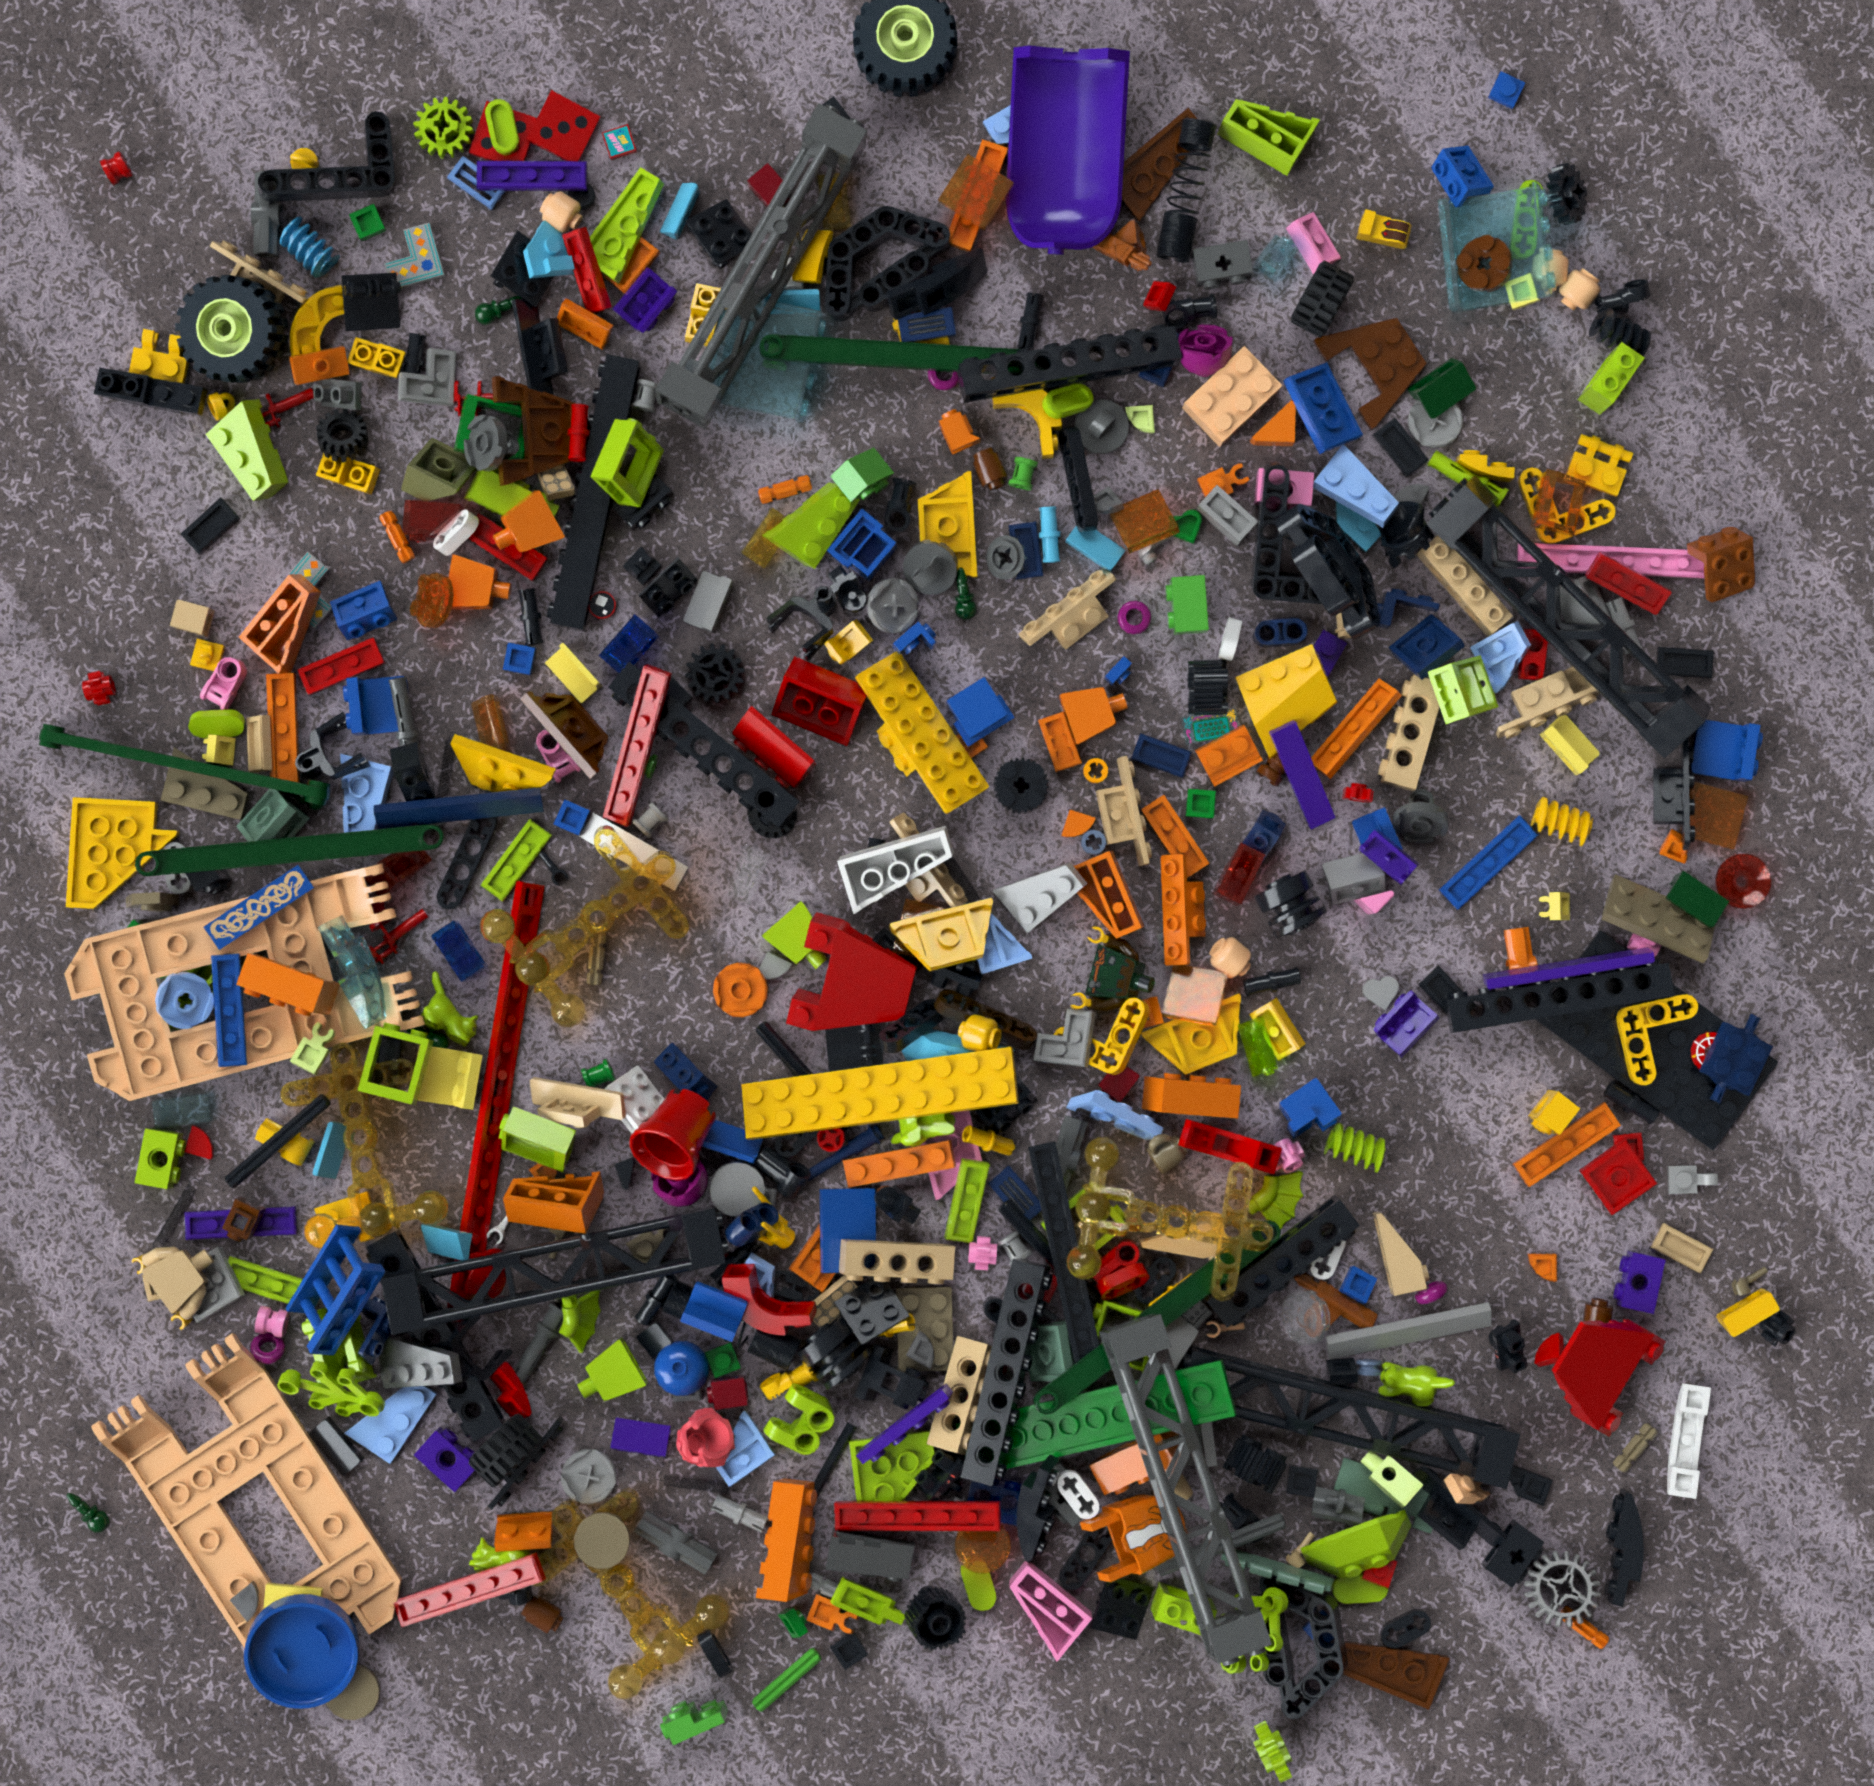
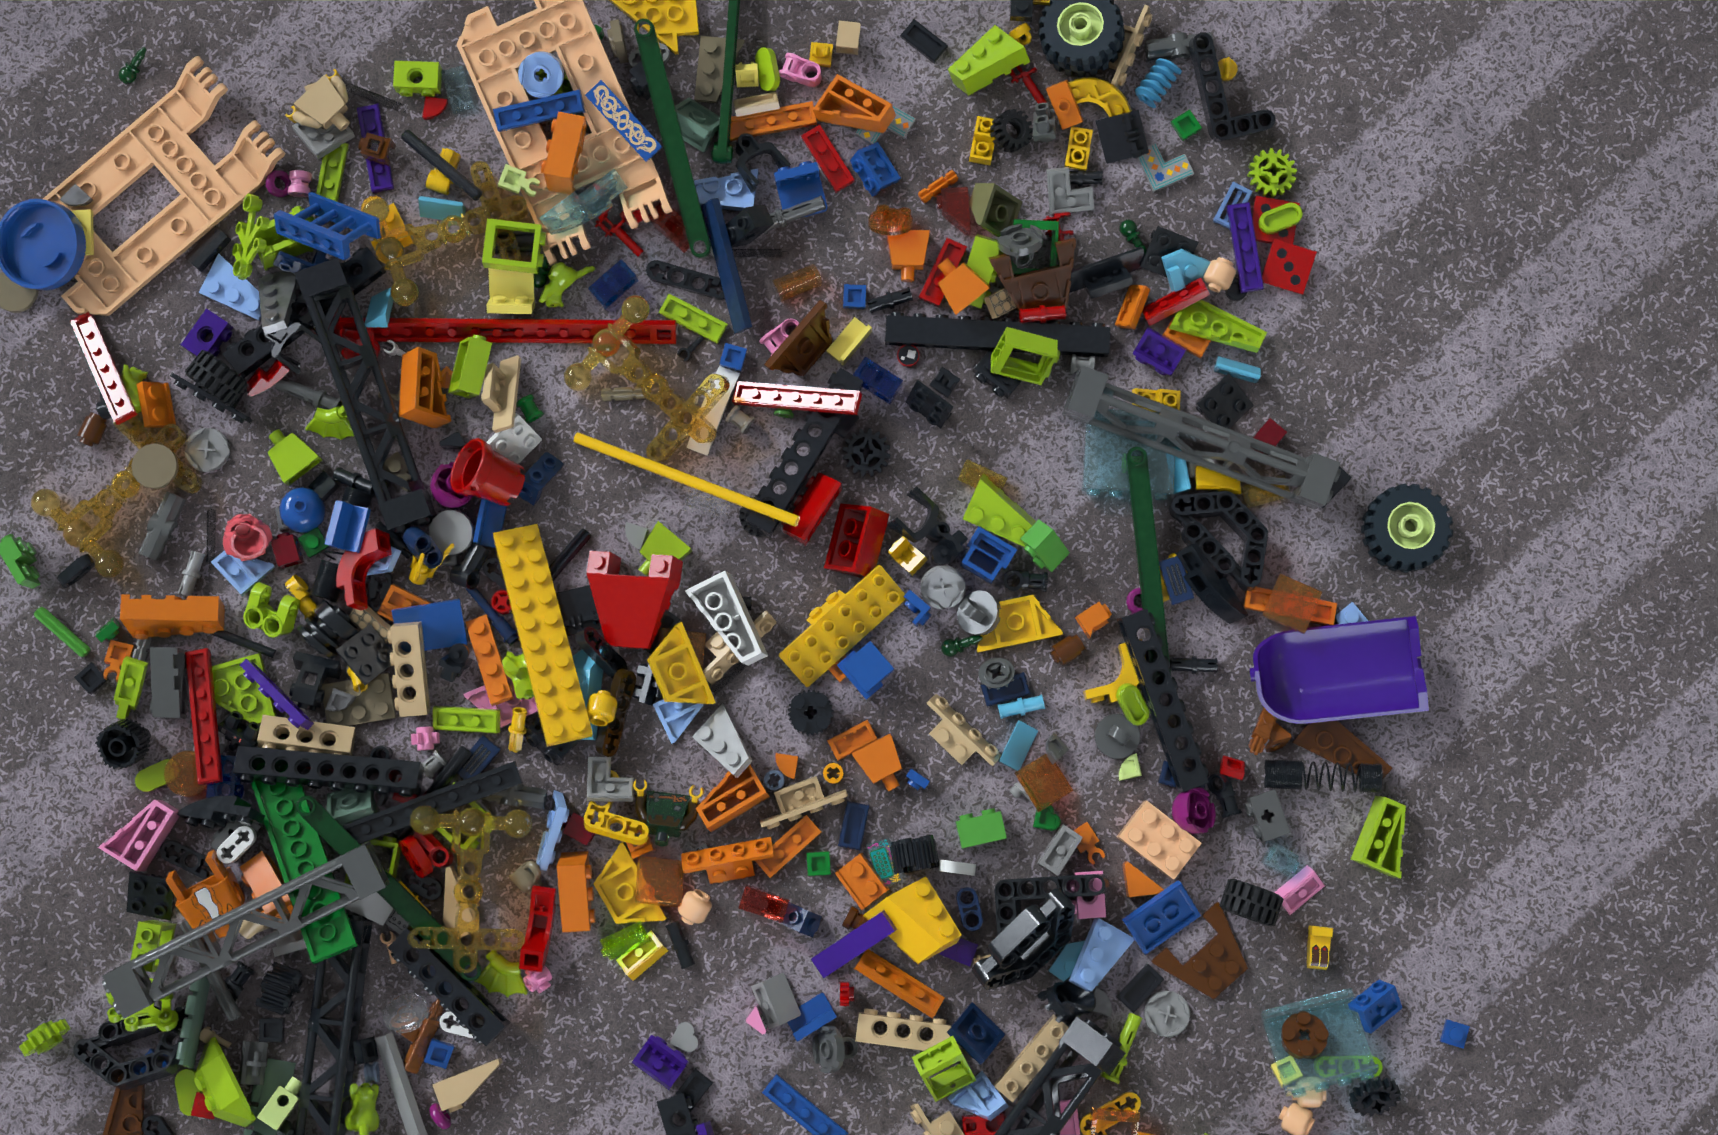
camera: 80 degrees right, 5 degrees down
(456, 532) = (948, 231): white beam -> none
(498, 769) = (762, 292): yellow wing -> none
(619, 142) = (1284, 312): tile -> none
(641, 1437) = (242, 486): dark purple hinge -> none
(708, 601) = (923, 439): light grey panel -> none
(716, 893) = (687, 479): none -> yellow piece
(748, 991) = (613, 518): orange tile -> none
(785, 489) = (1024, 486): orange axle -> none
(1023, 473) = (1067, 677): bright green bush -> none
(1078, 479) = (1070, 723): black beam -> none
(1134, 629) = (954, 786): magenta piece -> none
(1290, 904) = (745, 949): black wheel -> none
(1309, 1107) = (579, 990): blue plate -> none
(1356, 1146) = (552, 1035): lime piece -> none
(1388, 856) = (796, 1026): dark purple hinge -> none
(1399, 596) = (1002, 994): dark blue bracket -> none
(1443, 387) = (1195, 1015): dark green panel -> none
(1478, 465) = (1135, 1054): yellow slope -> none

